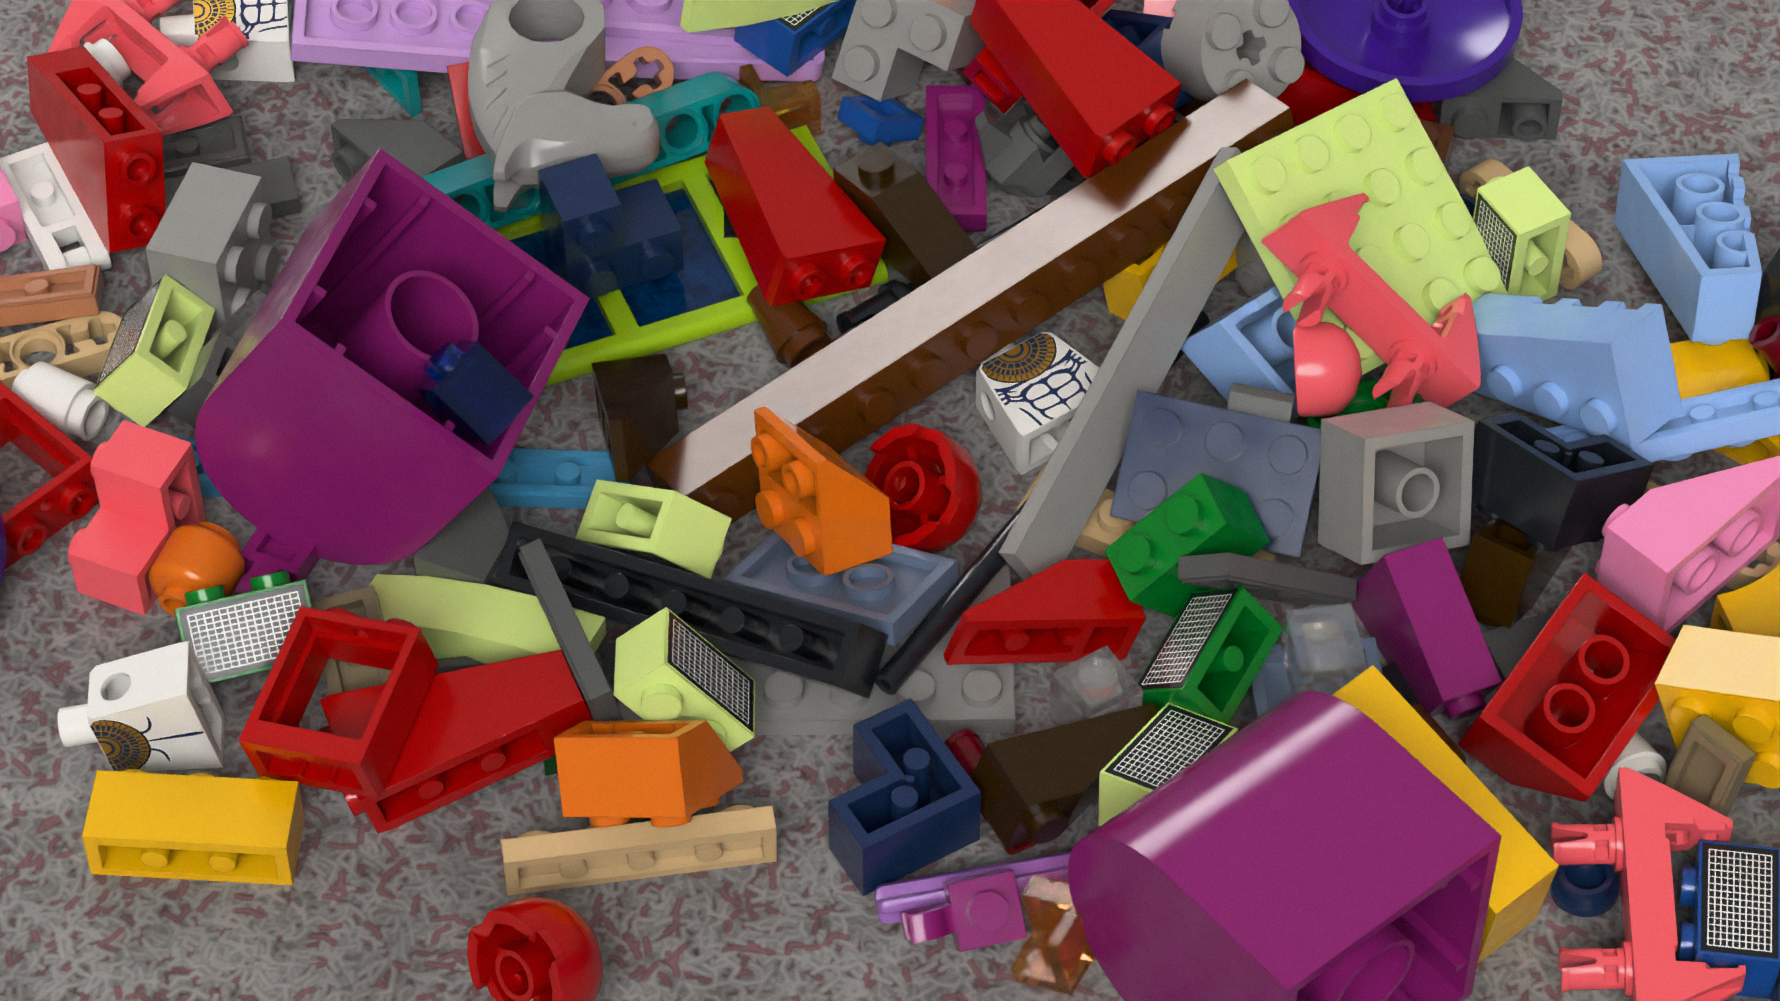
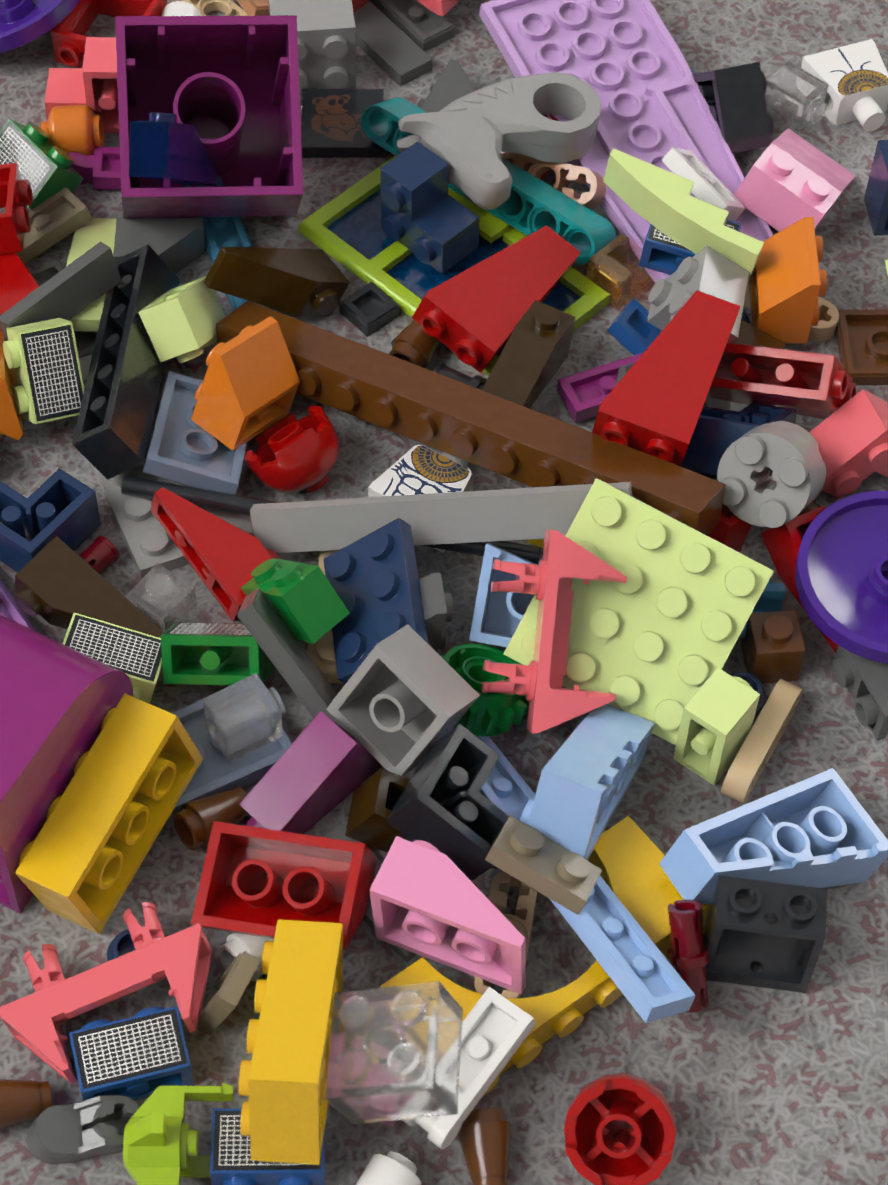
camera: 65 degrees right, 5 degrees up
(699, 361) = (369, 309): none -> black tile
(1324, 369) = (485, 622): coral hair -> none
(1679, 421) = (543, 865): none -> dark tan plate

